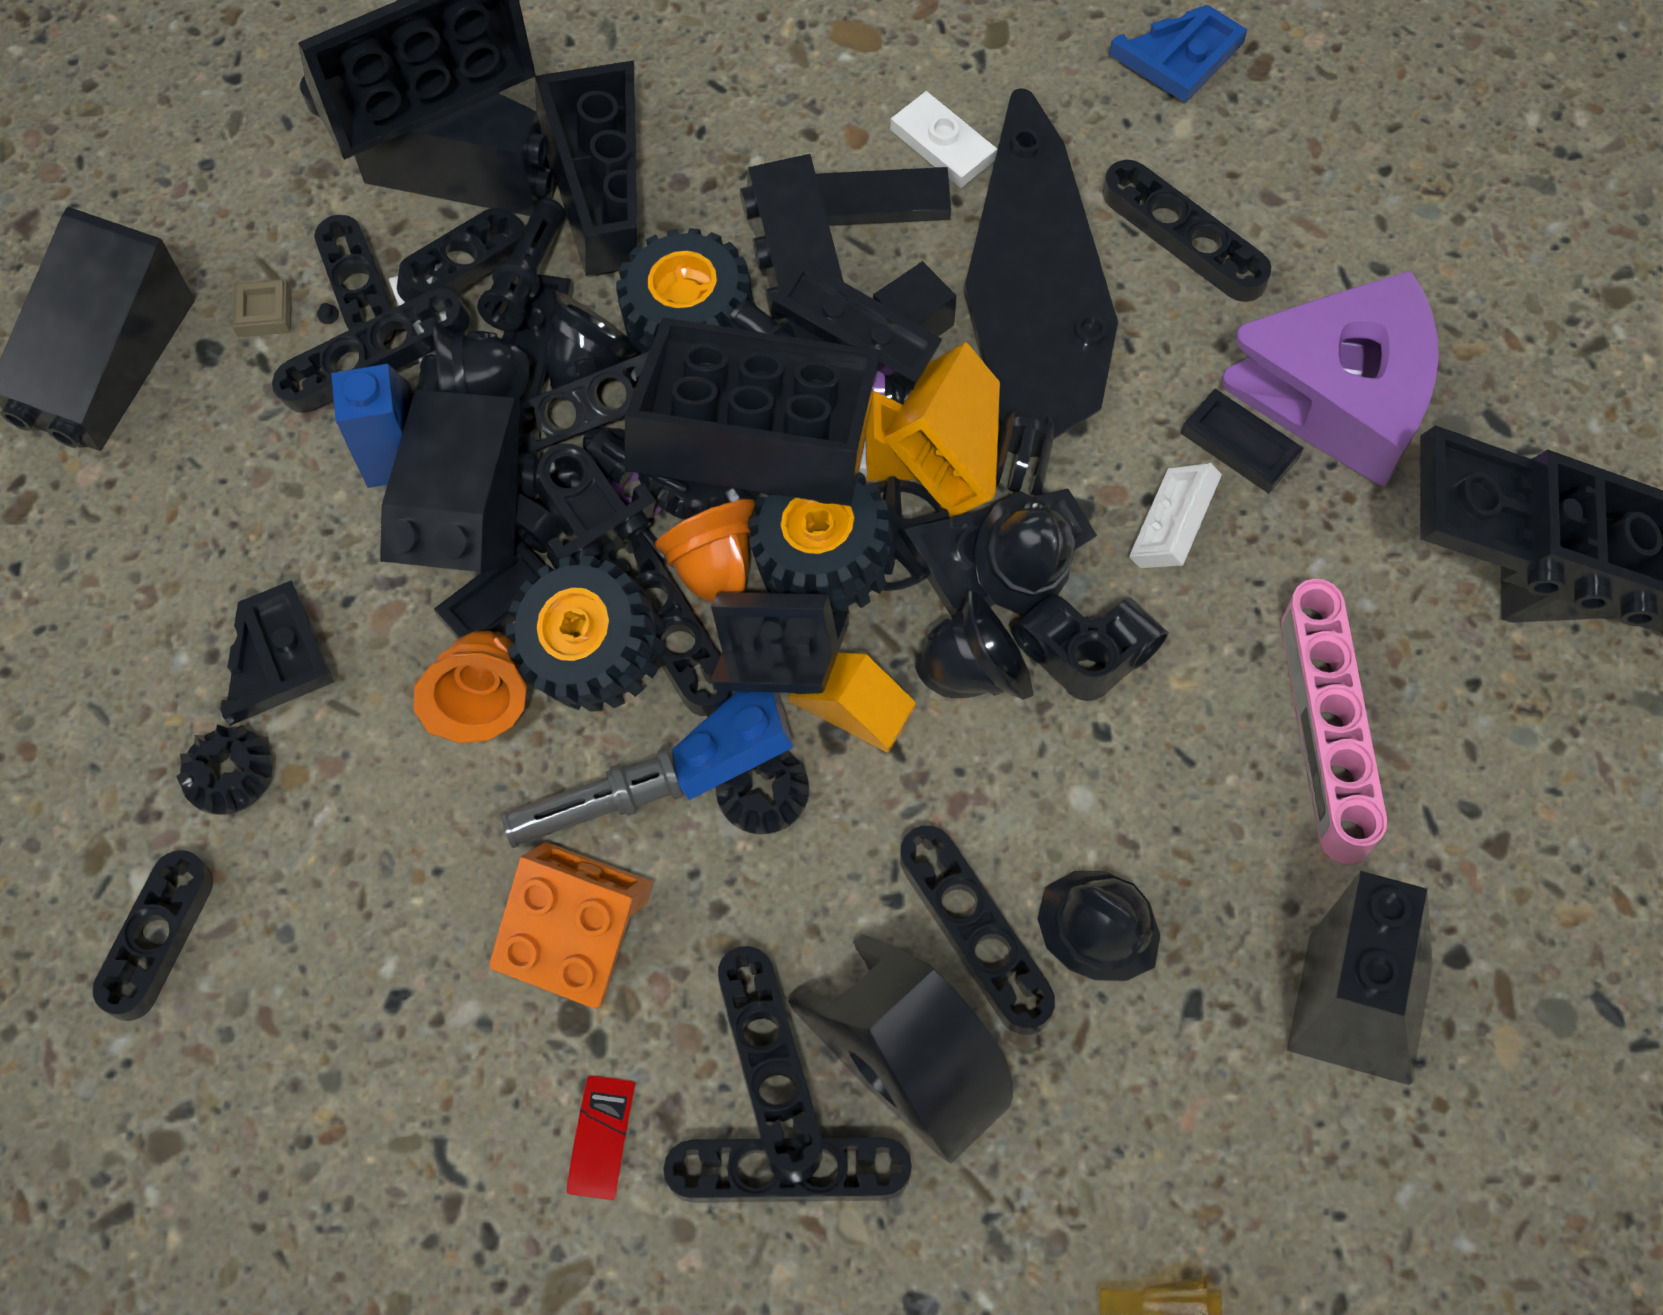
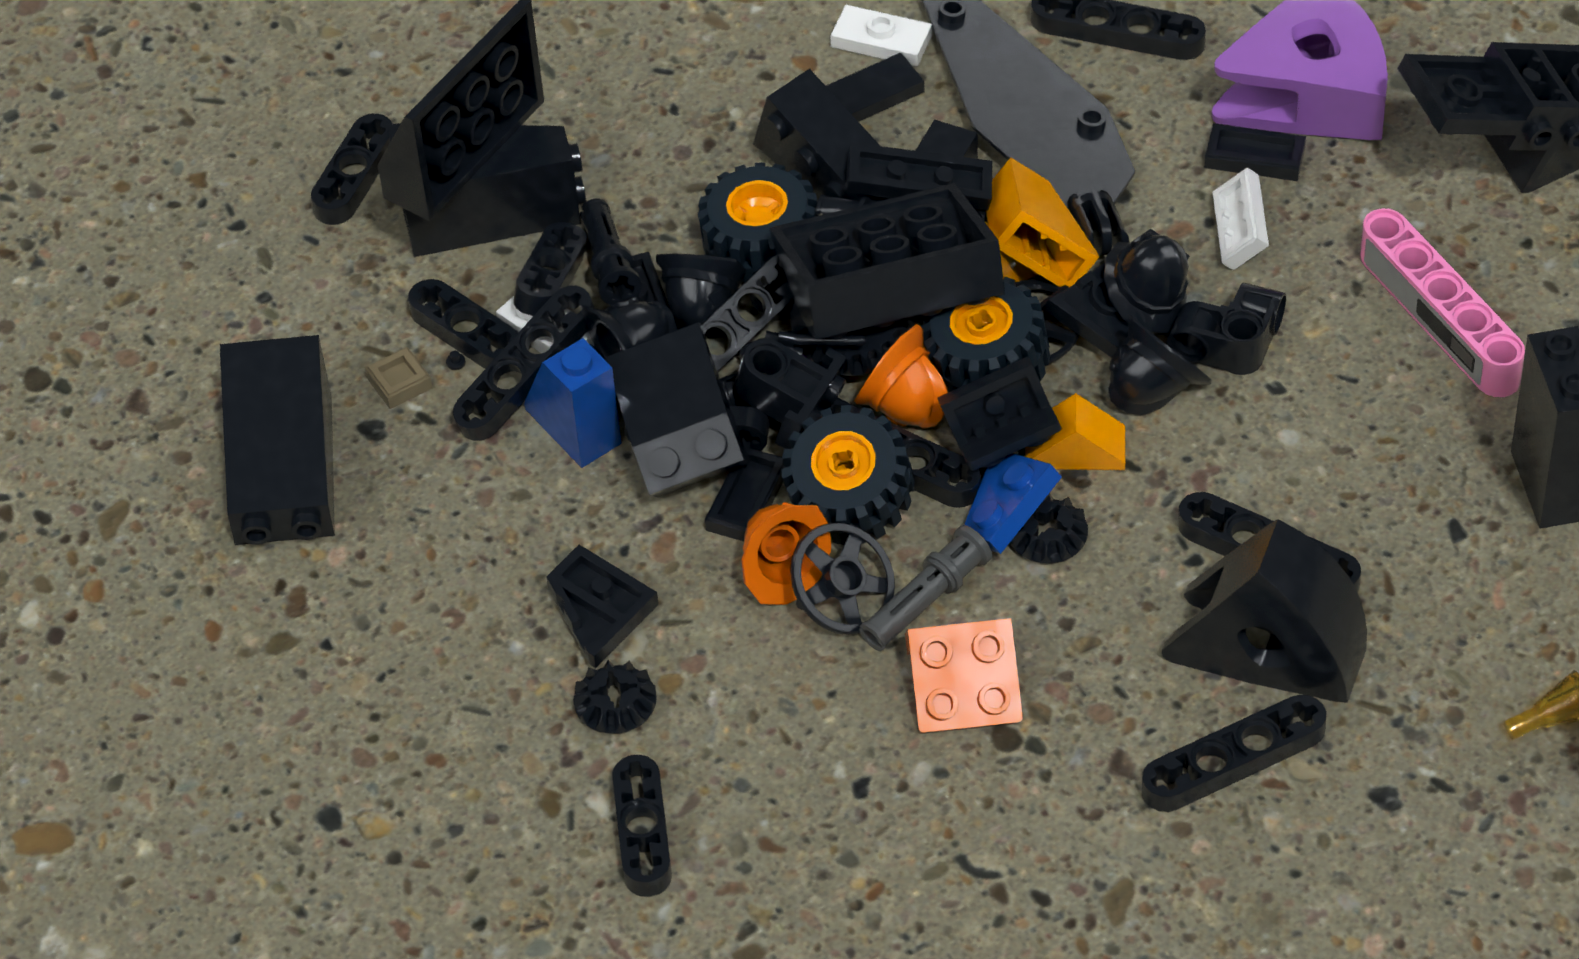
camera: 25 degrees left, 15 degrees down
(511, 747) = (841, 577): none -> black wheel
(593, 154) = (621, 157): black wedge -> none
(600, 1137) = (1081, 800): red sticker -> none
(768, 1061) = (1182, 681): black beam -> none
(1099, 926) = (1357, 504): black piece -> none

